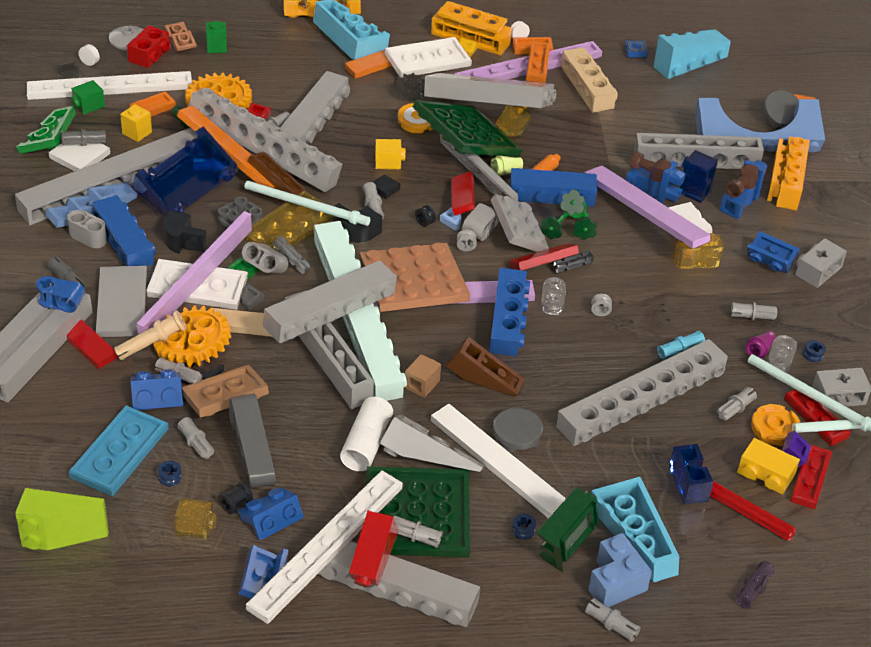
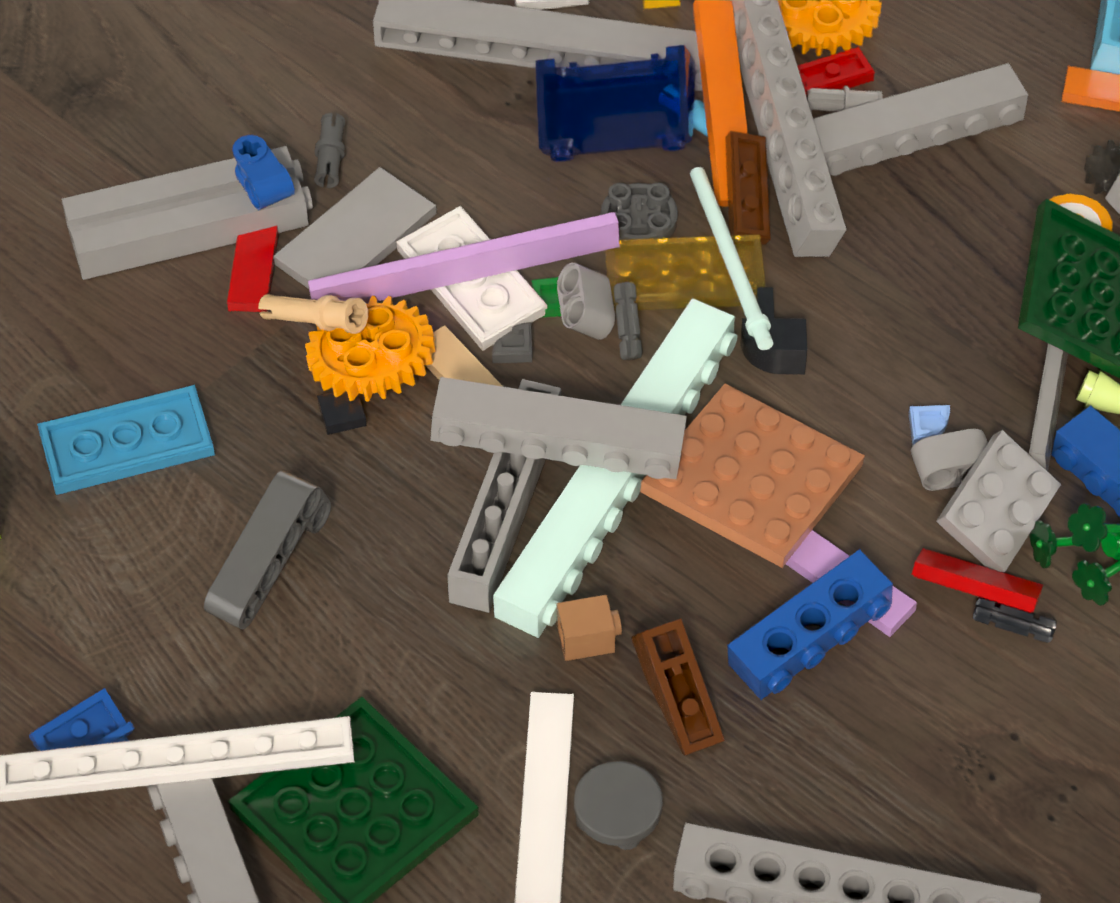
camera: 50 degrees right, 10 degrees up
(59, 214) = (460, 66): medium blue slope -> none
(87, 228) = (423, 99): light grey beam -> none
(124, 233) = (460, 136): blue brick -> none
(156, 390) = (244, 390): blue bracket -> none
(169, 480) = (142, 505): dark blue bush -> none
(181, 234) = (527, 183): black brick -> none
(187, 374) = (302, 385): light grey axle -> none
(194, 518) = (93, 598): clear yellow brick -> none
(195, 438) = (220, 493): light grey axle -> none
(215, 392) = (320, 453): medium nougat plate -> none
(235, 497) = (169, 610): black bush -> none
(272, 512) = (188, 664): blue bracket -> none
(366, 434) = (421, 649): white piece -> none
(372, 199) = (839, 319): light grey pin -> none
(373, 548) = (203, 811): red slope -> none
(386, 186) = (890, 306): black tile -> none
(389, 154) = (949, 258): yellow brick -> none
(412, 441) = (464, 714): wedge -> none
(418, 532) = (301, 834): light grey axle -> none
(425, 215) = (884, 392): black bush -> none
(463, 193) = (976, 395): red tile -> none
(466, 235) = (896, 472): light grey bush -> none
(553, 296) = (924, 648): clear plate -> none
(601, 299) = (966, 717): light grey bush -> none
(680, 344) = (1006, 870): medium azure pin -> none

